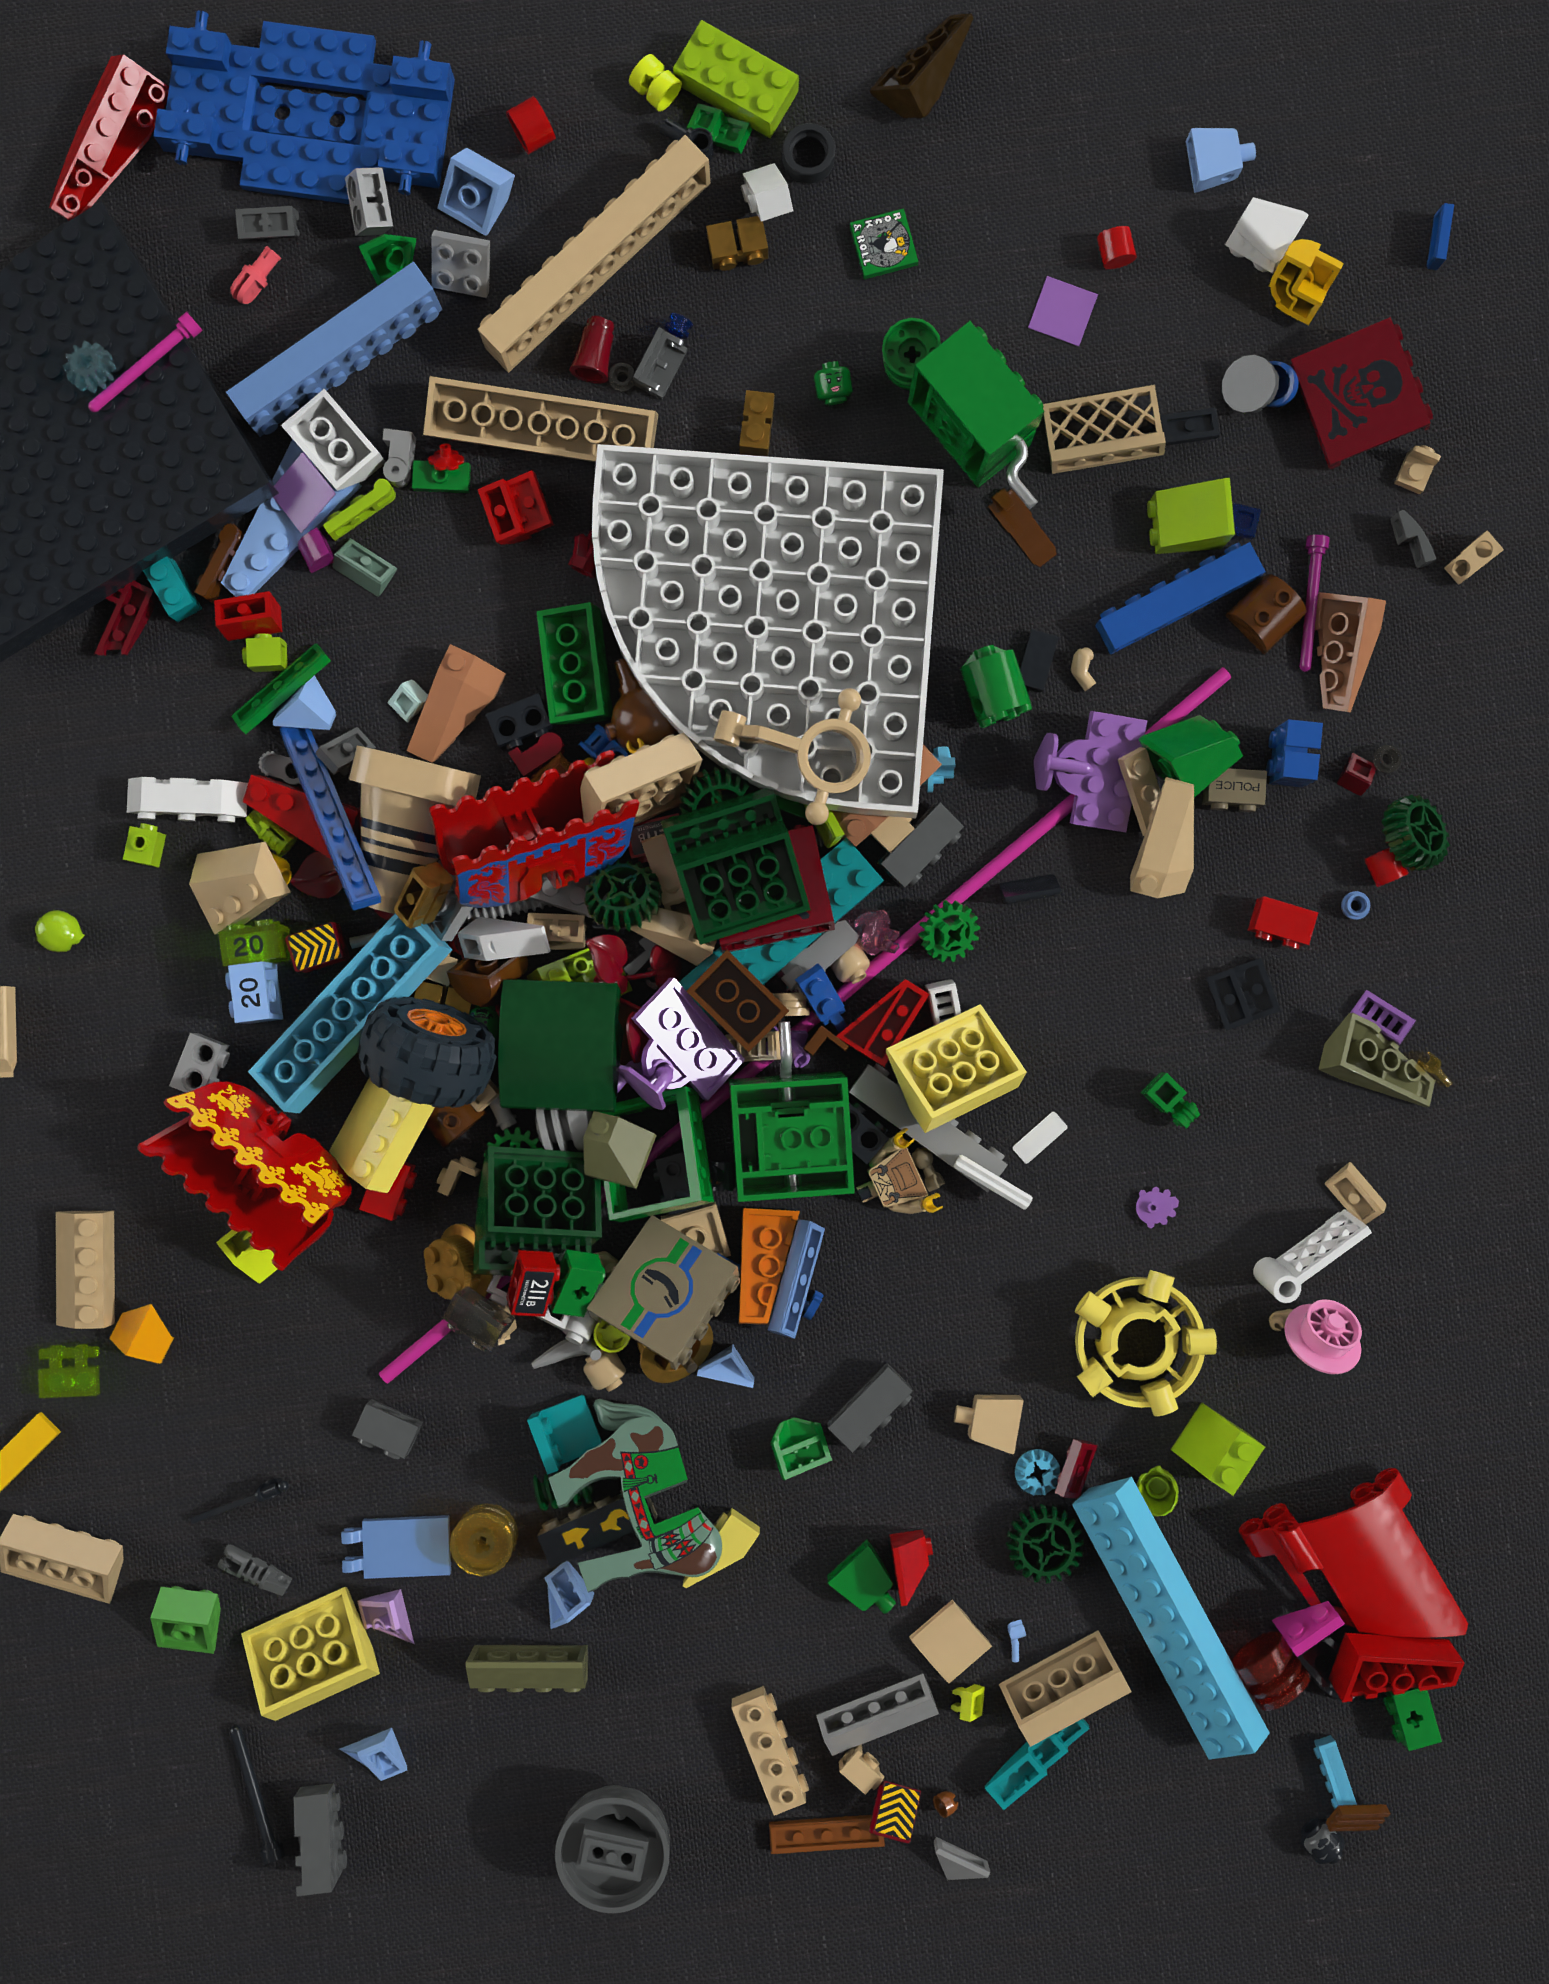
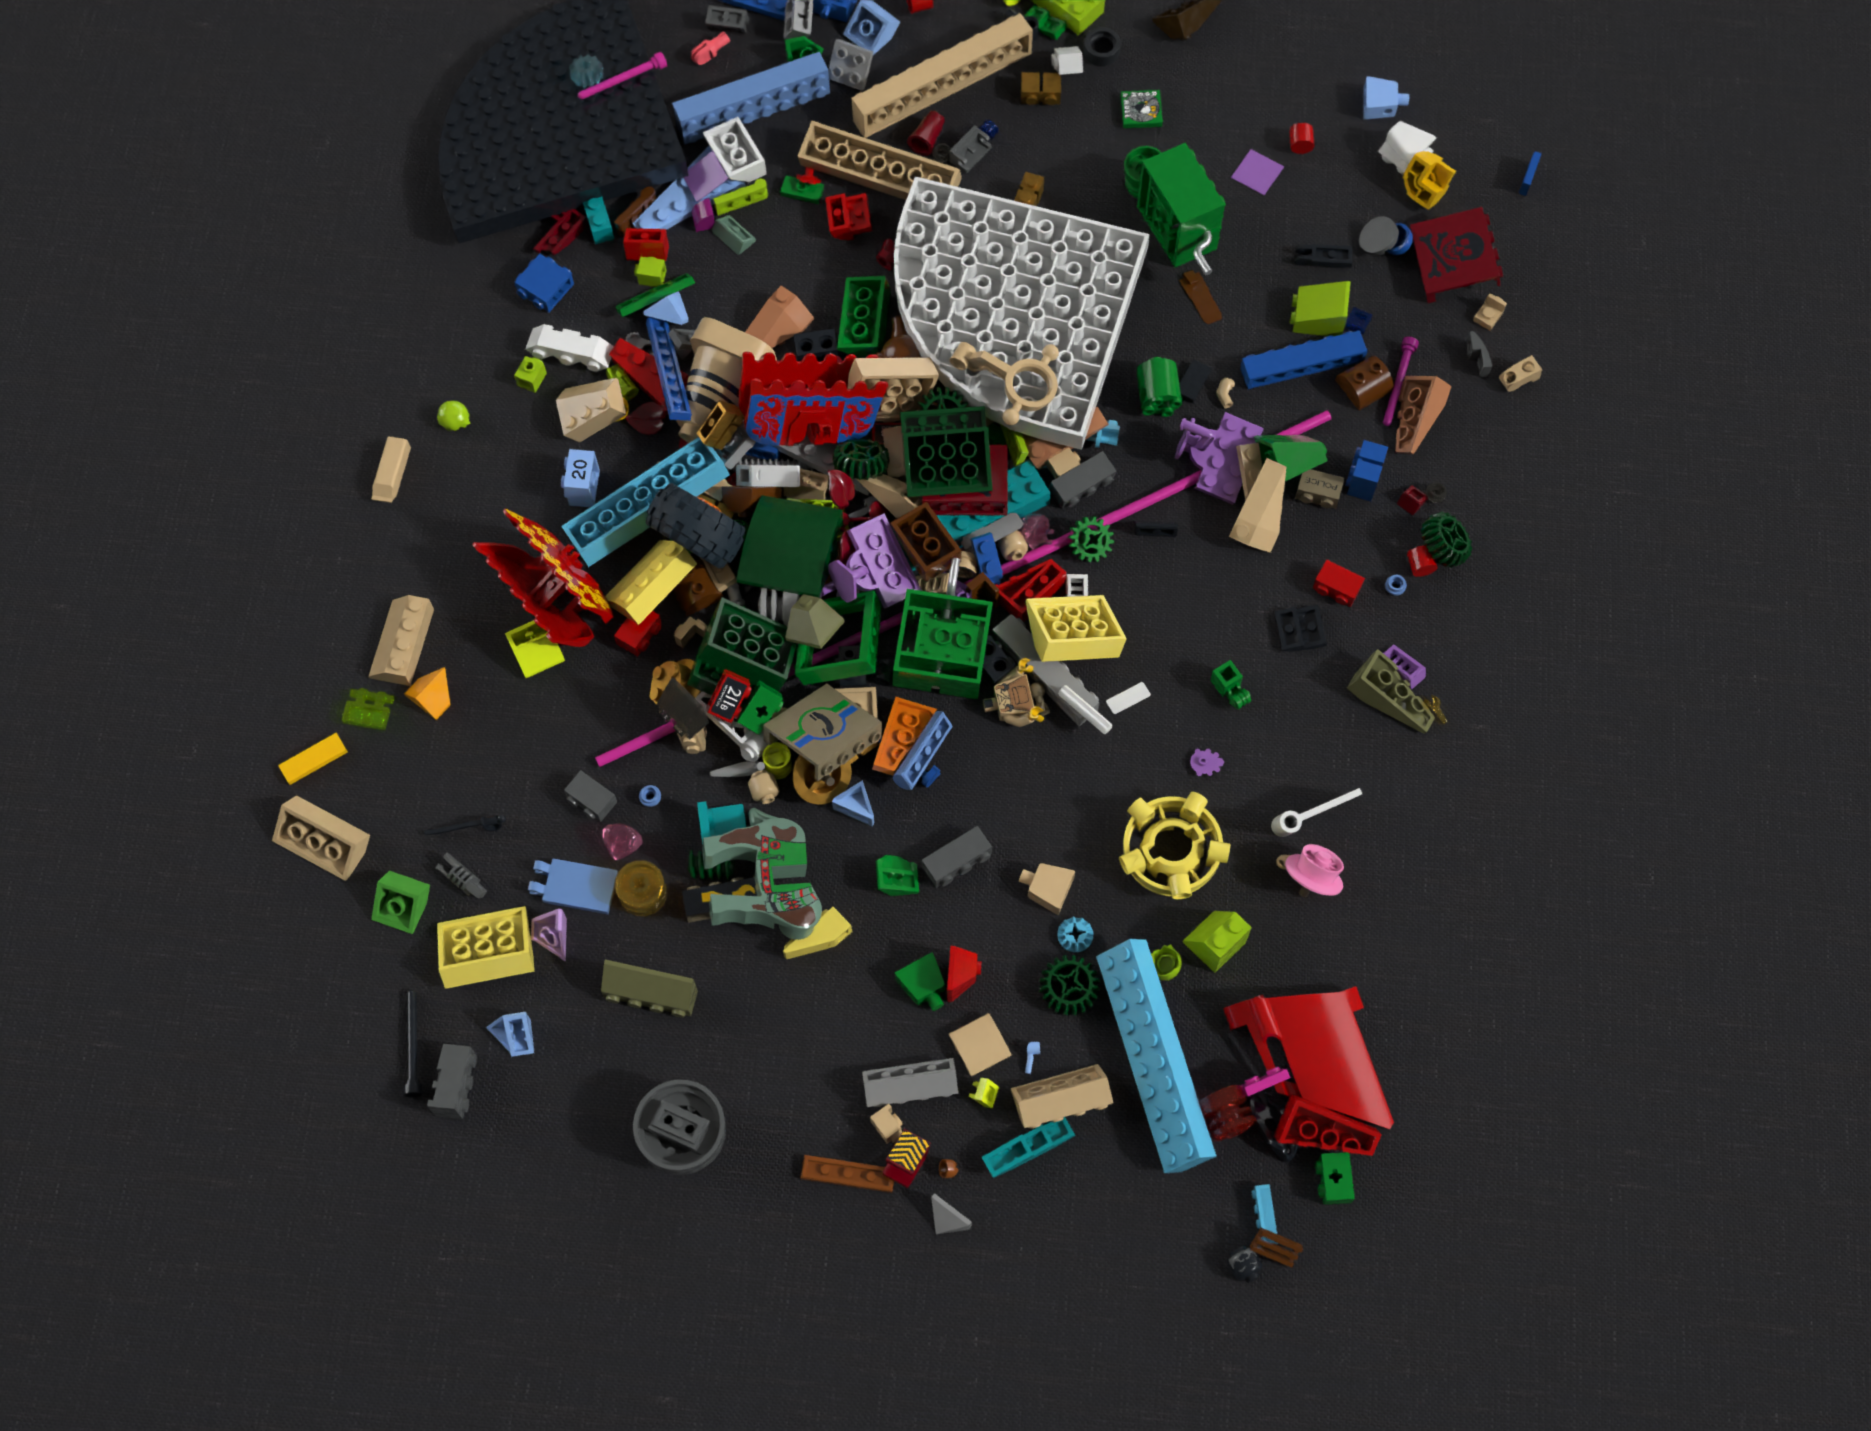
camera: 15 degrees right, 20 degrees down
(123, 704) = (544, 282): none -> blue brick
(193, 1061) = (526, 509): light grey brick -> none
(254, 944) = (593, 439): clear neon green brick -> none
(317, 947) = (632, 459): piece -> none
(401, 456) = (779, 168): light grey leg -> none
(408, 700) = (740, 319): light aqua slope -> none
(442, 1481) = (621, 840): none -> clear pink piece
(454, 1411) = (645, 791): none -> medium blue plate
(566, 1594) = (691, 947): light blue slope -> none
(769, 1750) = (818, 1094): tan brick -> none
(833, 383) = (1087, 183): green head -> none
(1075, 1469) = (1105, 933): dark red plate -> none
(1102, 451) = (1270, 257): tan fence -> none
(1356, 1194) = (1356, 777): tan slope -> none

